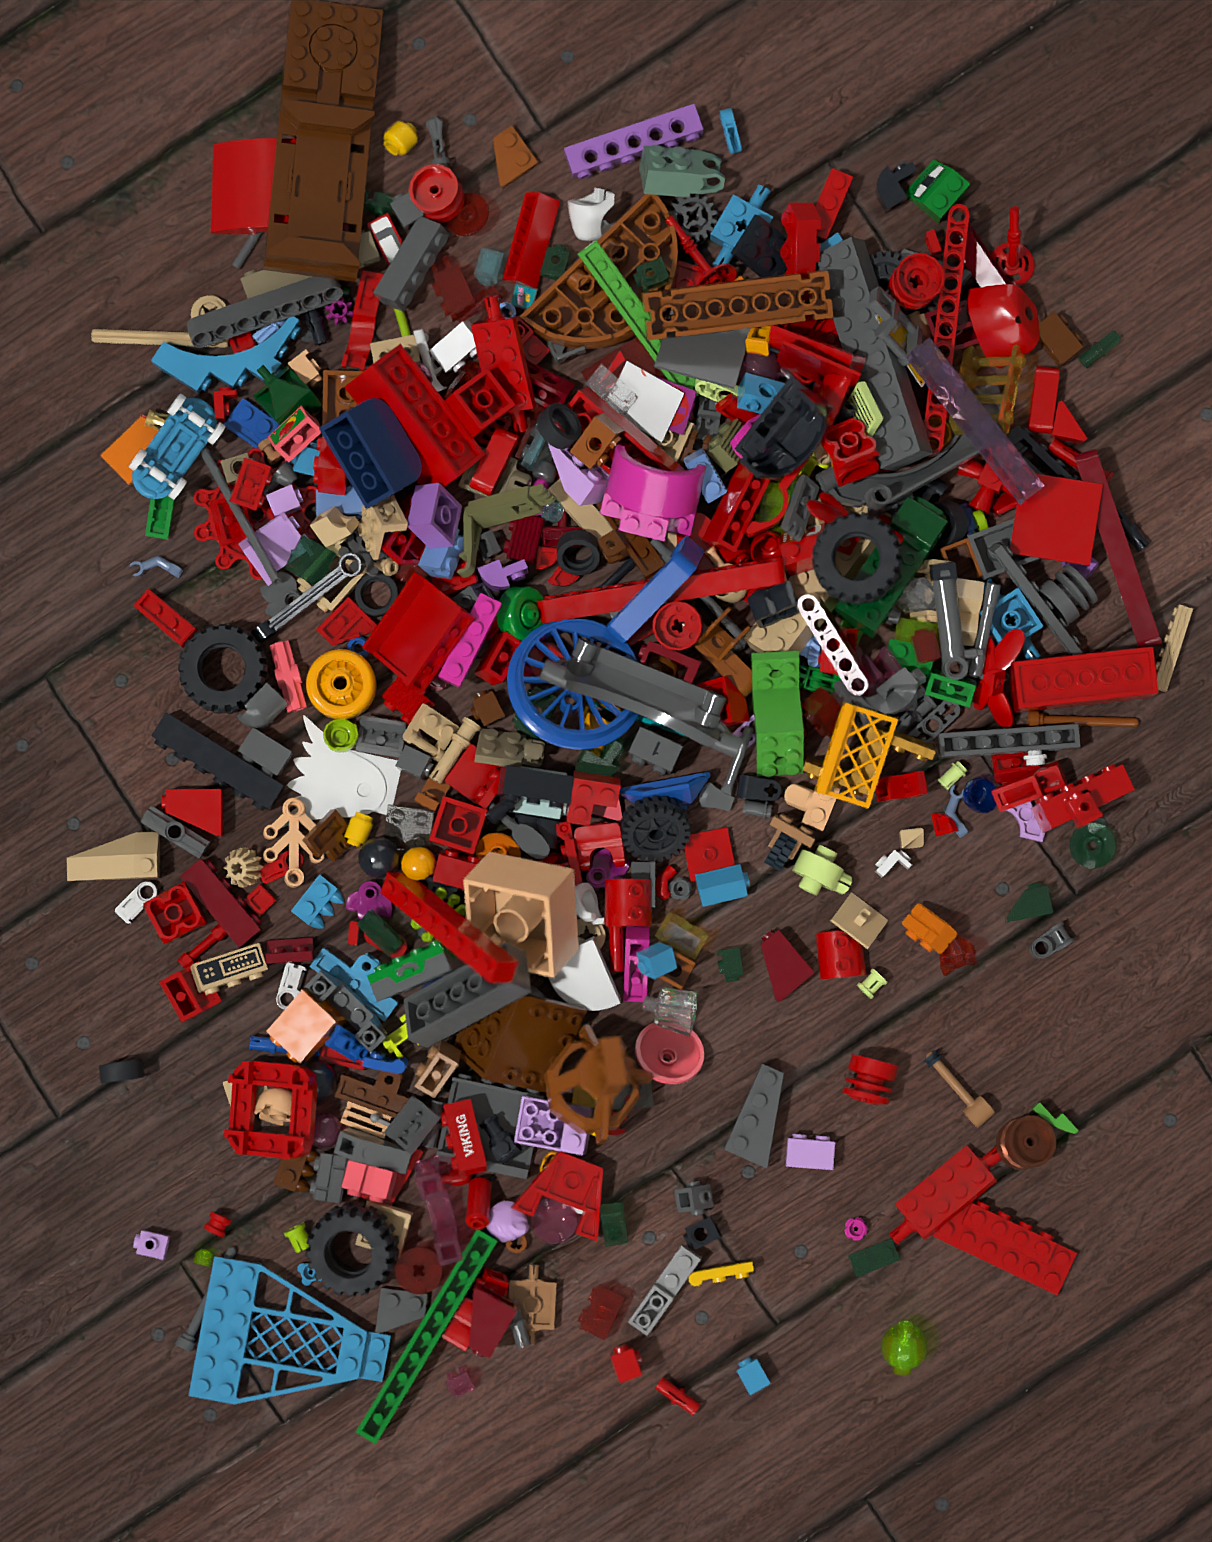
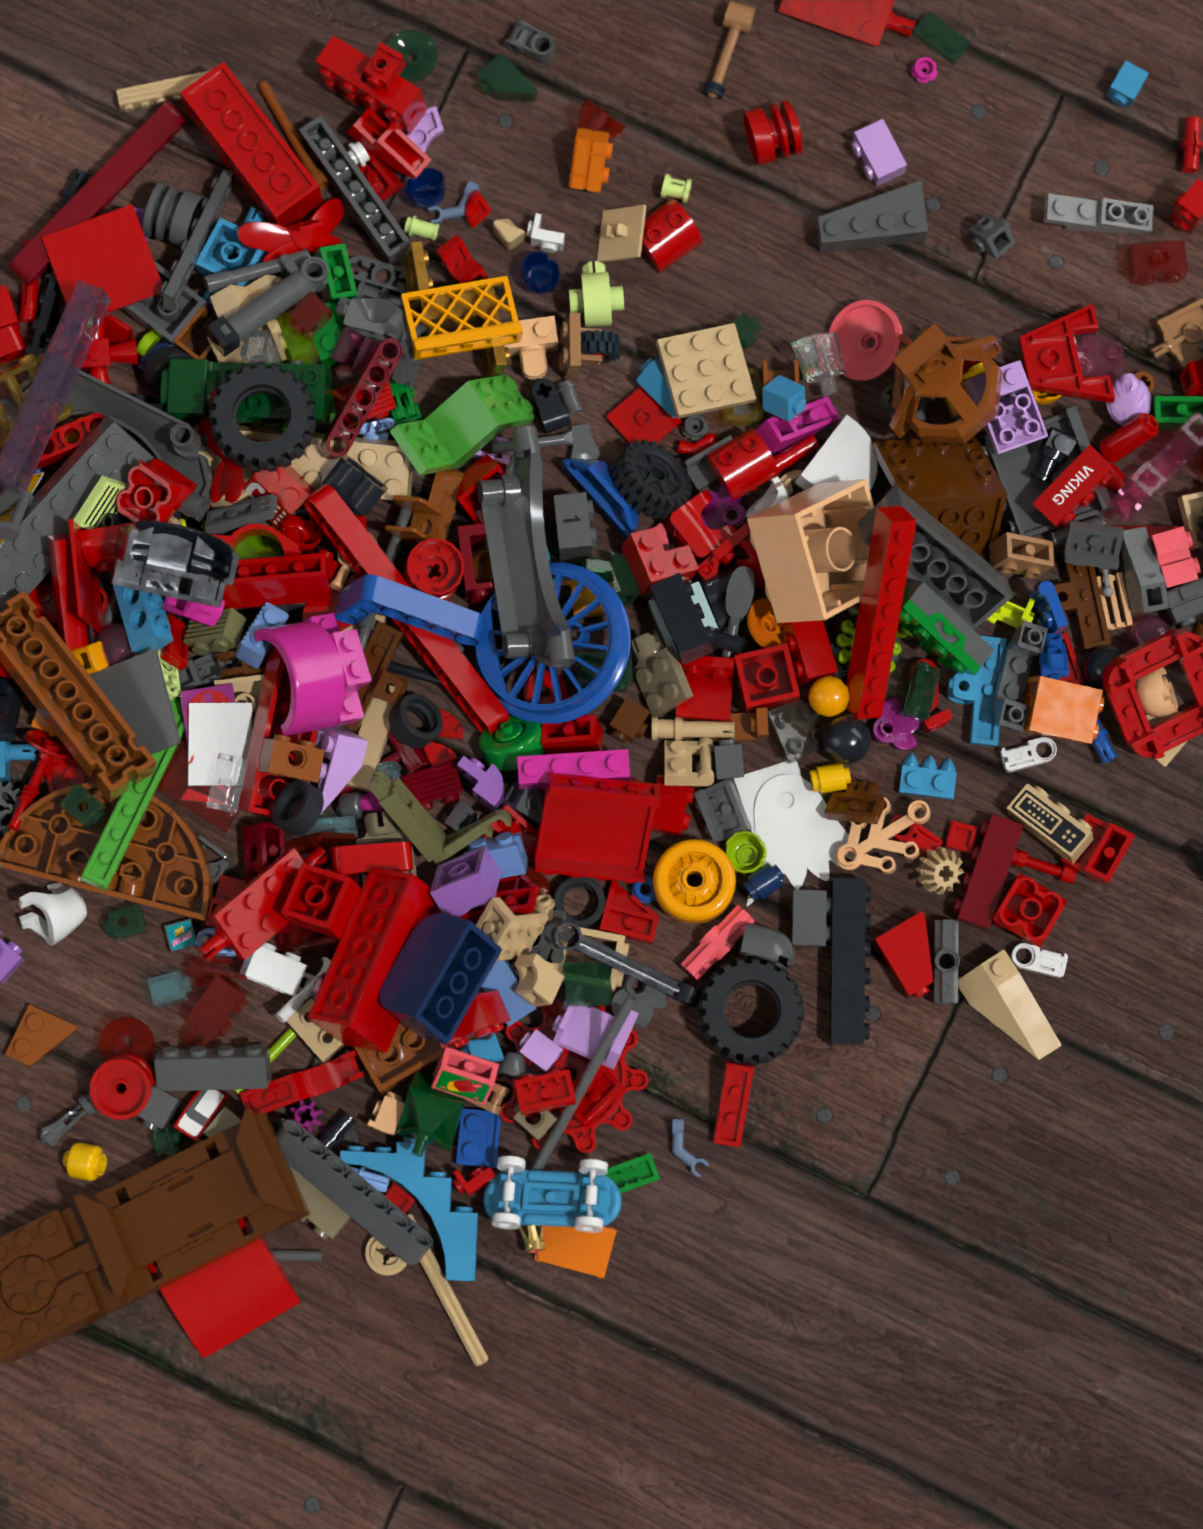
camera: 125 degrees left, 5 degrees down
(289, 951) = (995, 774): dark red bracket -> none
(311, 735) = (763, 882): none -> dark blue brick
(531, 239) = (115, 963): red brick -> none
(613, 1224) = (1065, 298): clear green brick -> none
(712, 1233) = (1021, 200): black brick -> none
(713, 917) = (705, 370): none -> tan plate
(719, 1274) = (1047, 171): yellow plate -> none
(783, 964) = (710, 282): dark red slope -> none
(823, 711) = (435, 381): clear red brick -> none
(864, 842) = (539, 272): none -> clear blue hair

